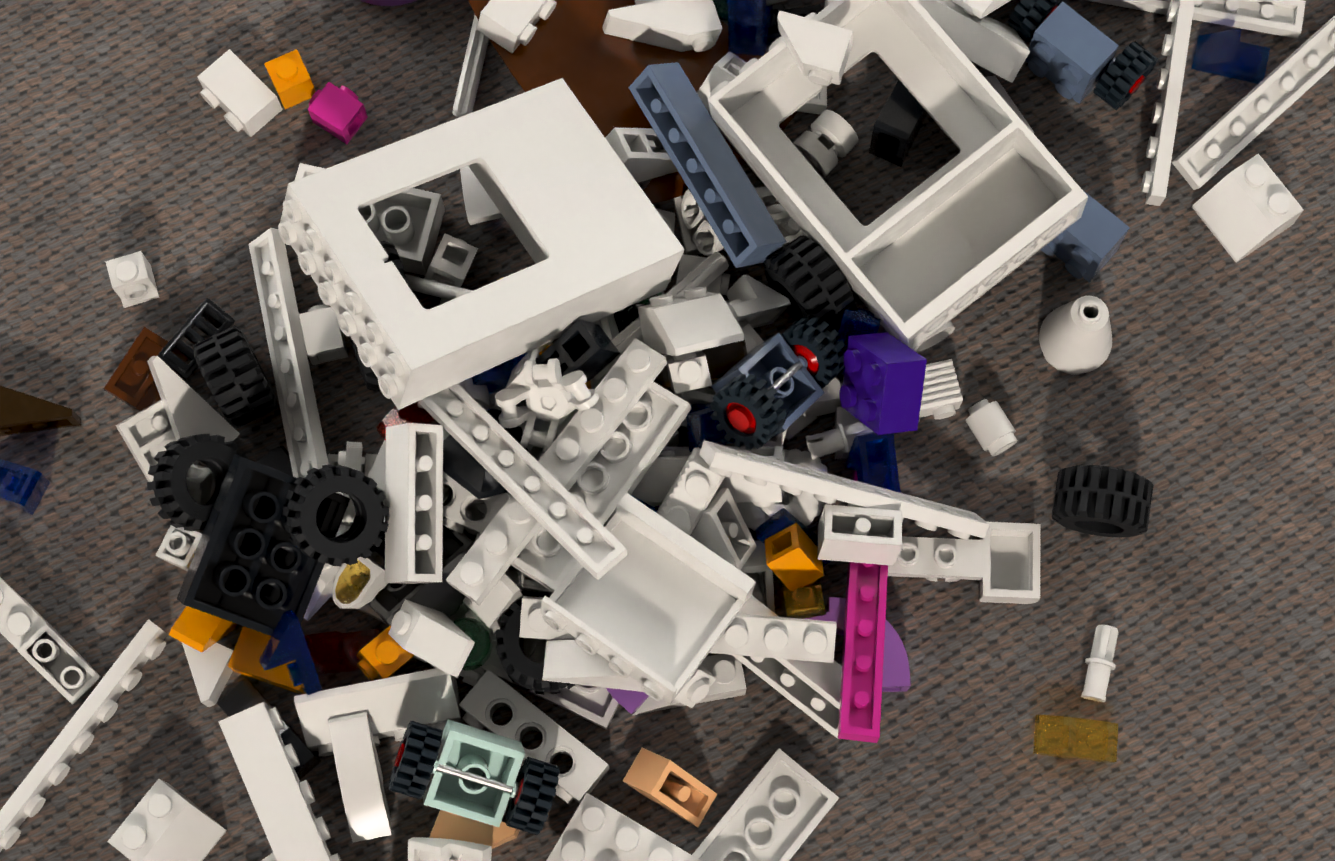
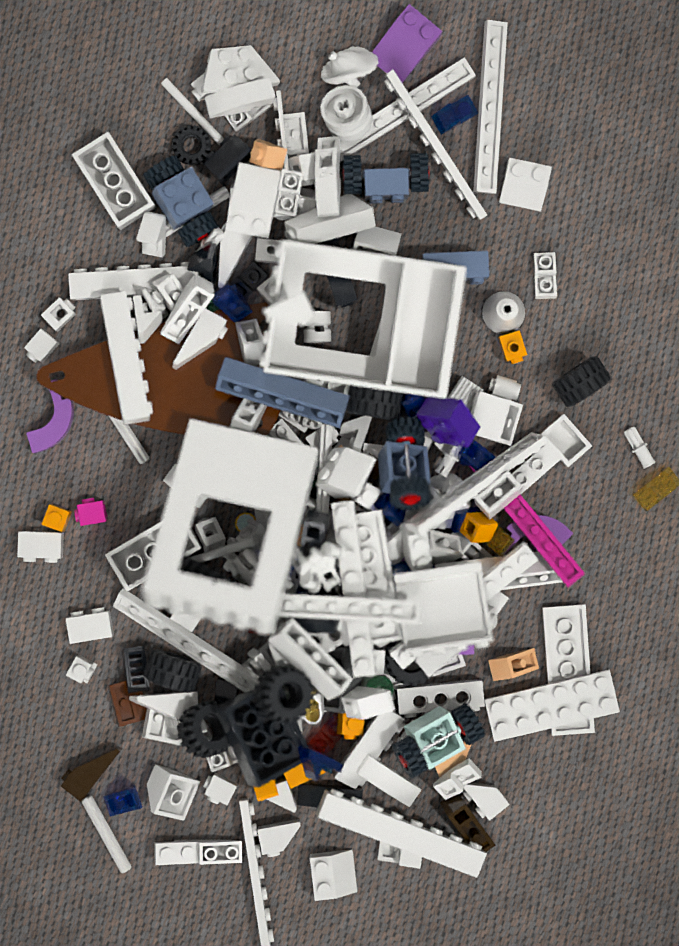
camera: 45 degrees left, 15 degrees up
(79, 531) = (171, 792): none -> white slope
(142, 585) = (219, 789): none -> white brick
(147, 715) = (276, 836): none -> white slope
(196, 238) = (90, 626): none -> white brick
(945, 447) = (496, 417): none -> white slope
(1049, 386) = (512, 347): none -> light orange brick
(1171, 341) = (545, 275): none -> white slope

